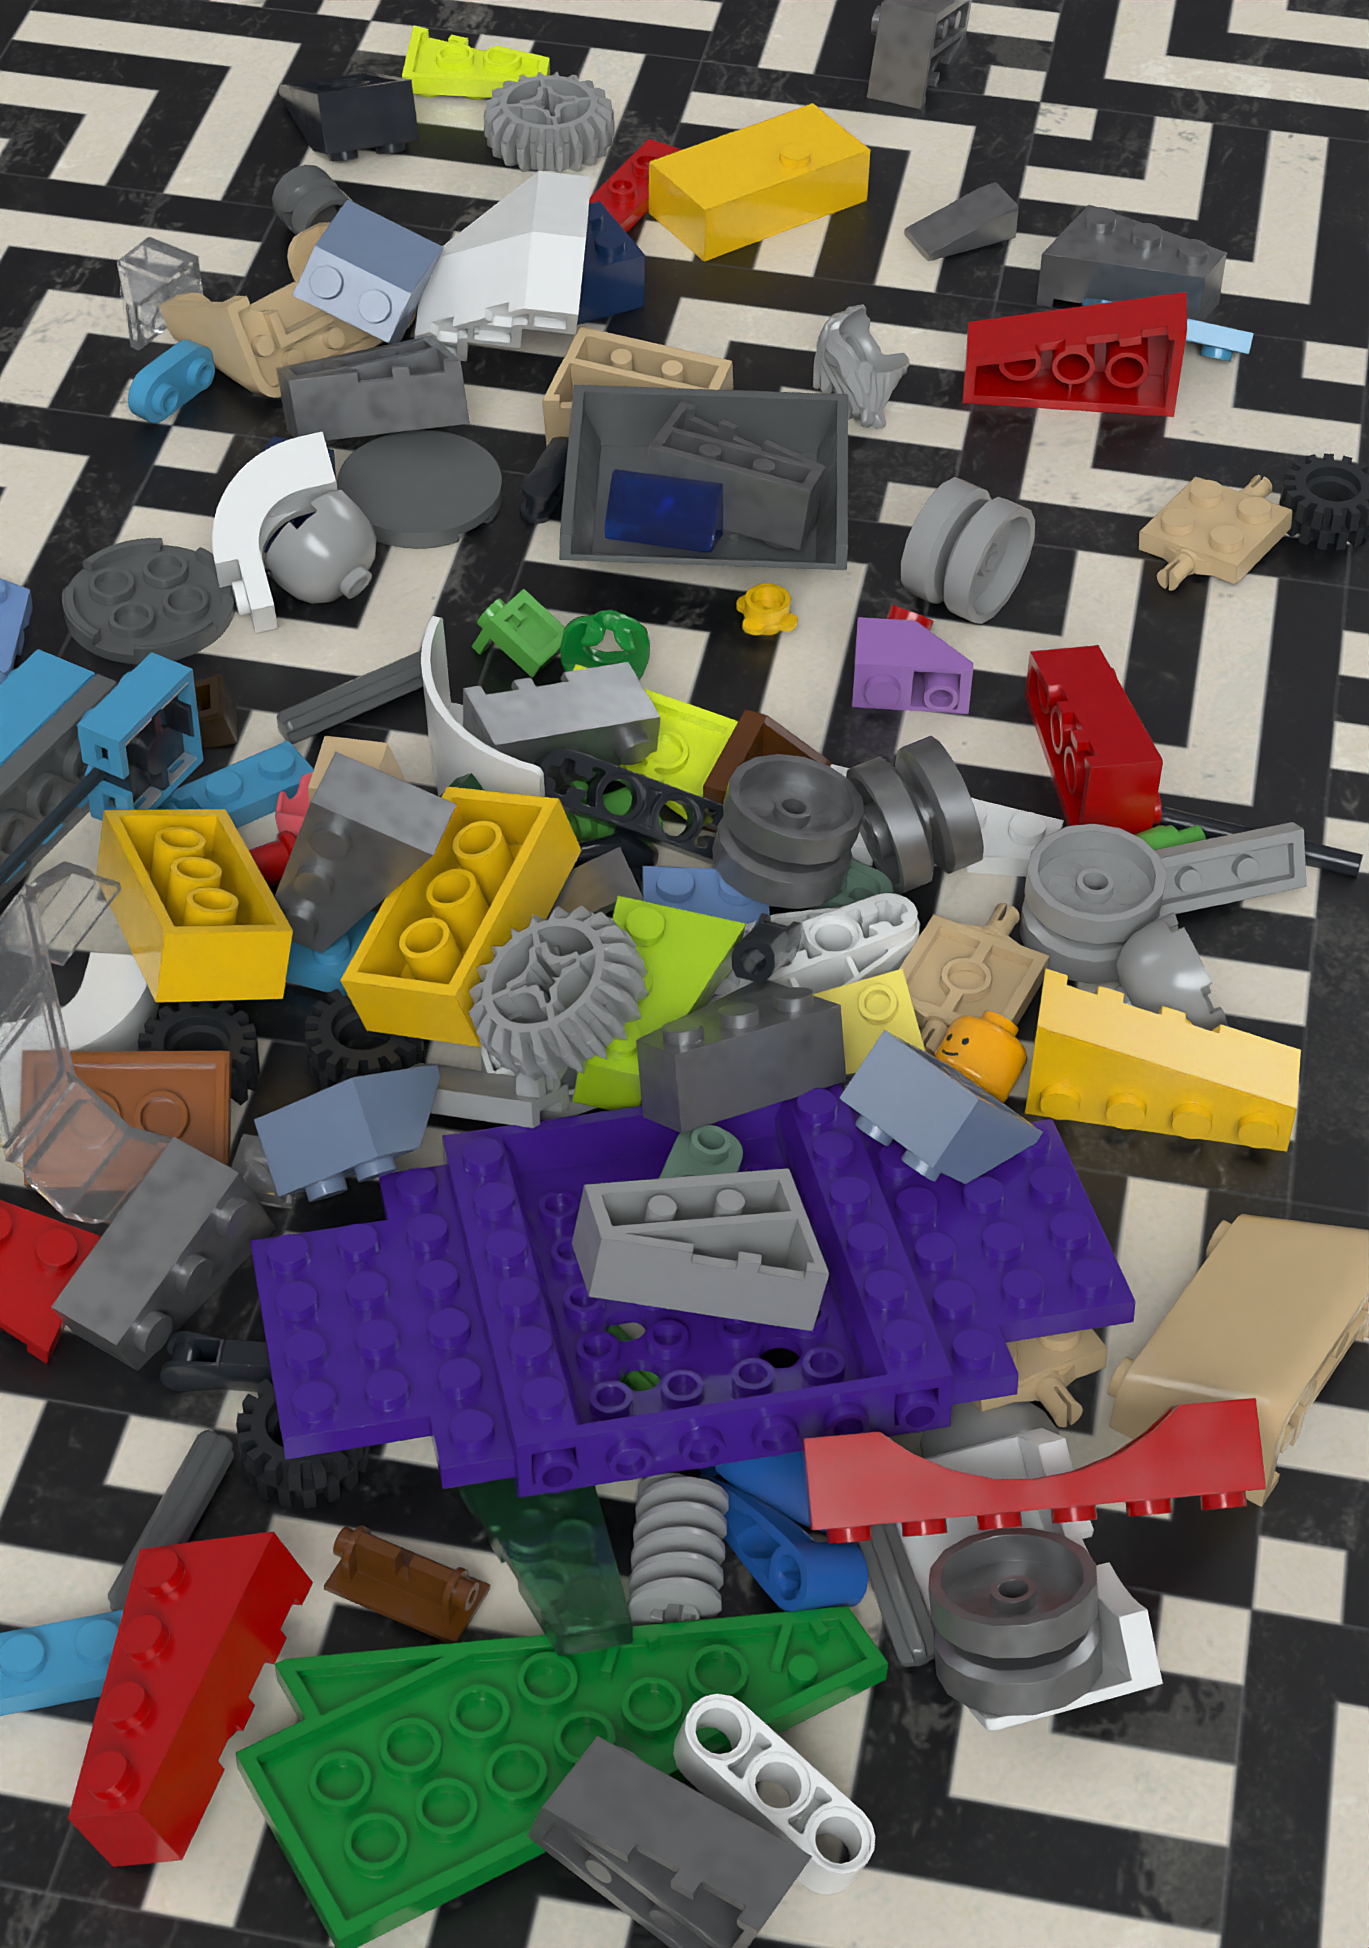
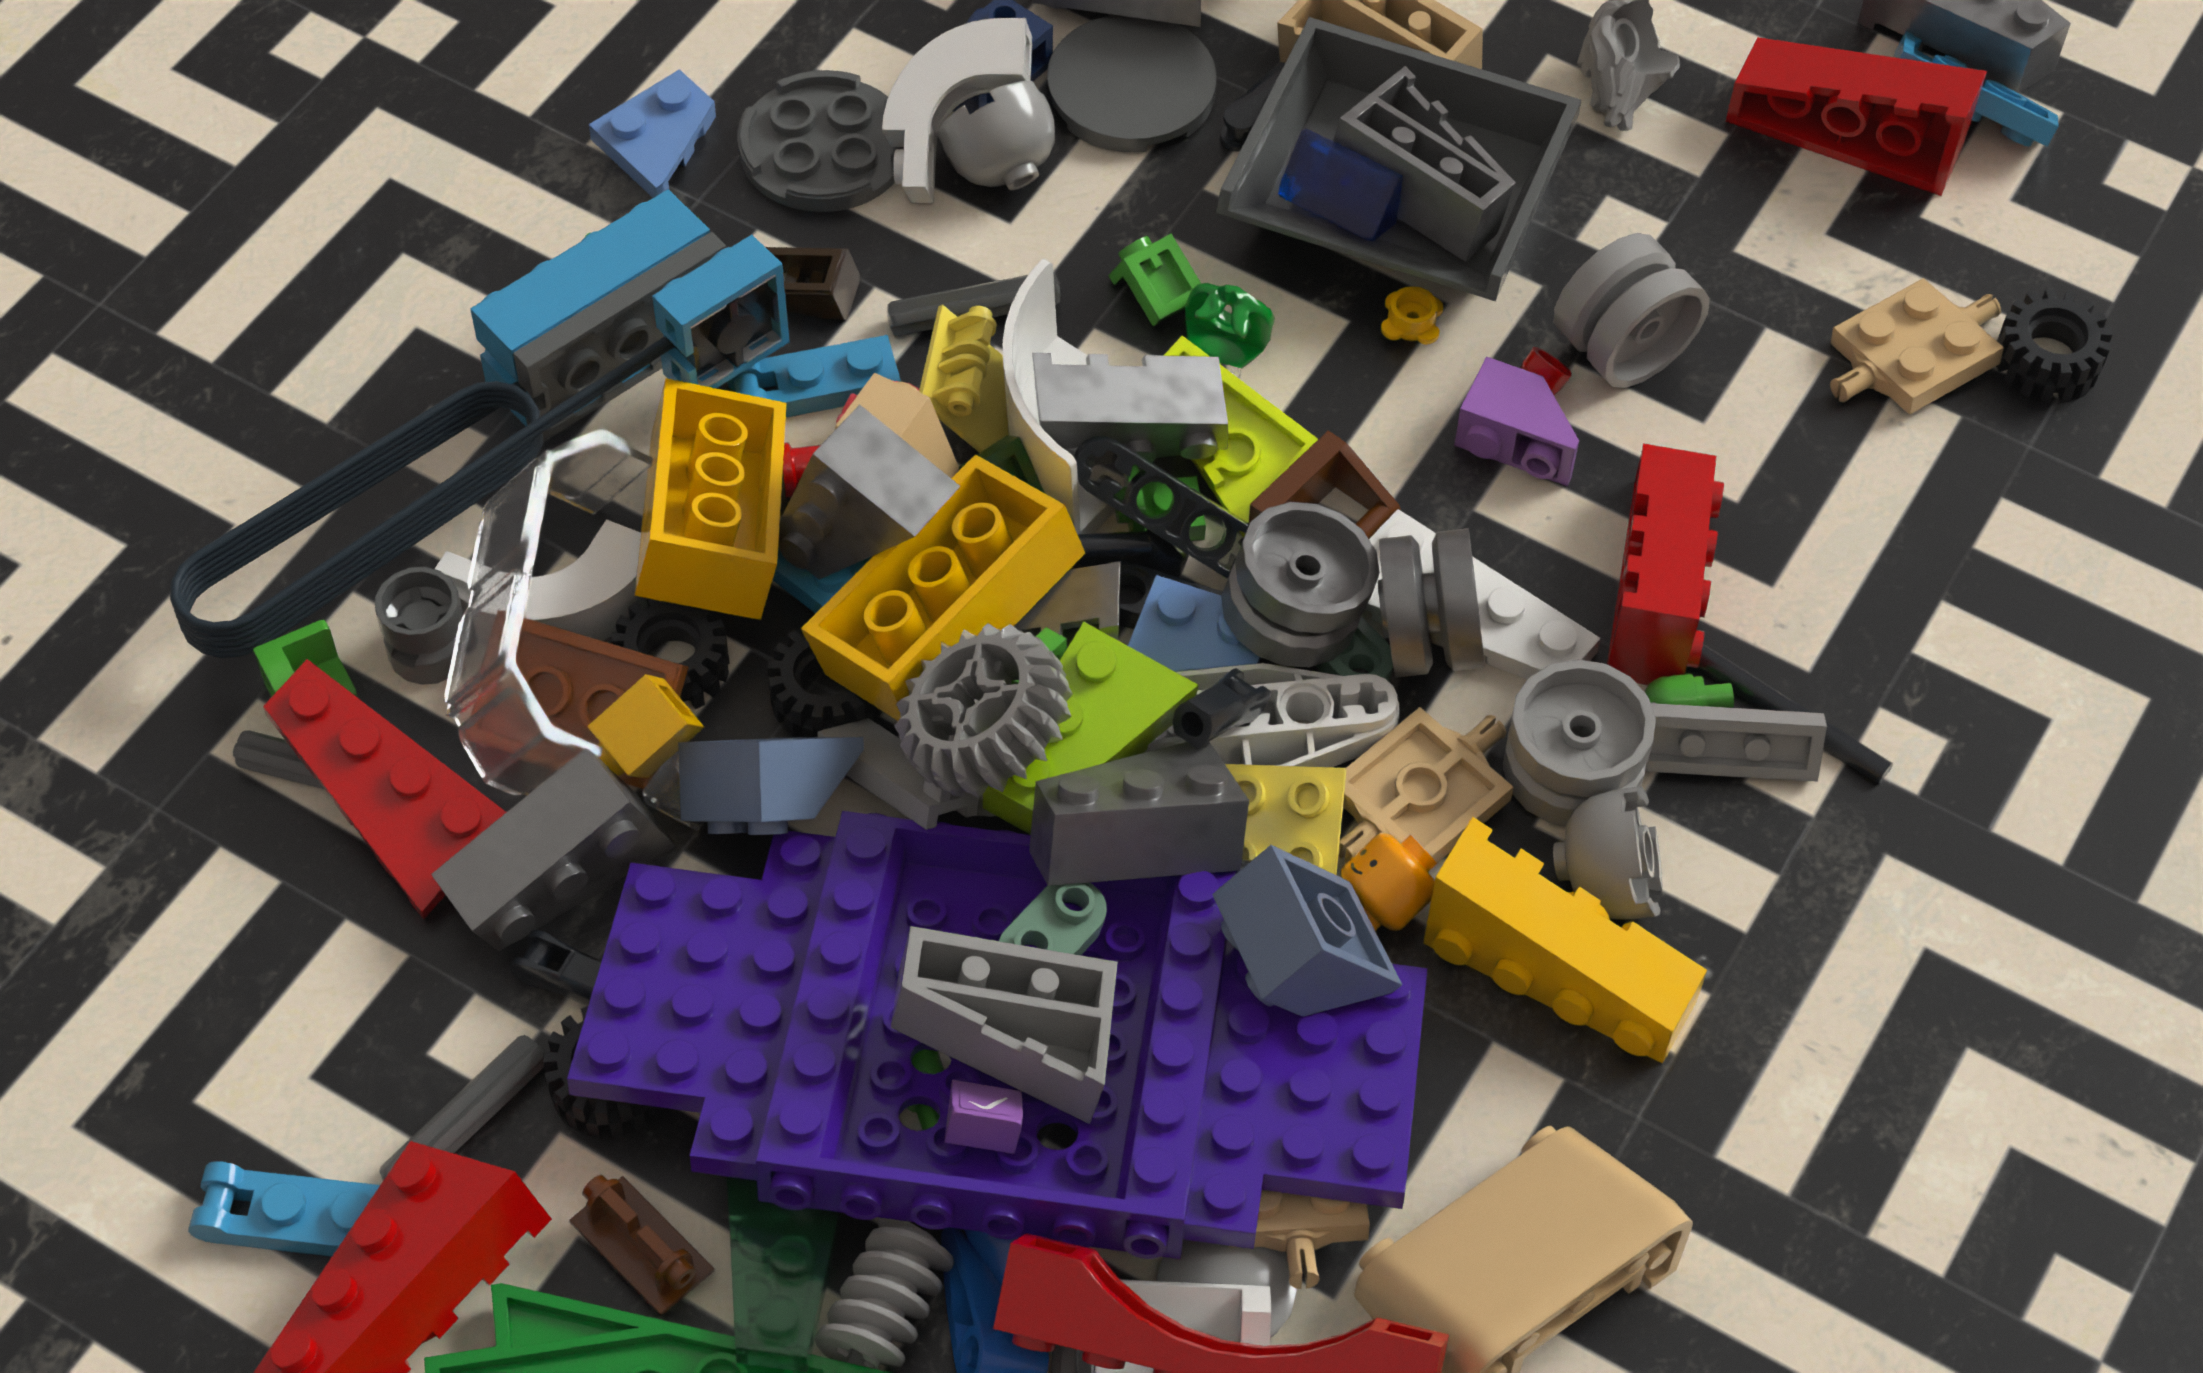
camera: 20 degrees right, 10 degrees up
(216, 1112) = (644, 728): none -> yellow brick
(381, 718) = (967, 376): none -> light yellow hinge
(716, 1349) = (984, 1116): none -> medium lavender slope

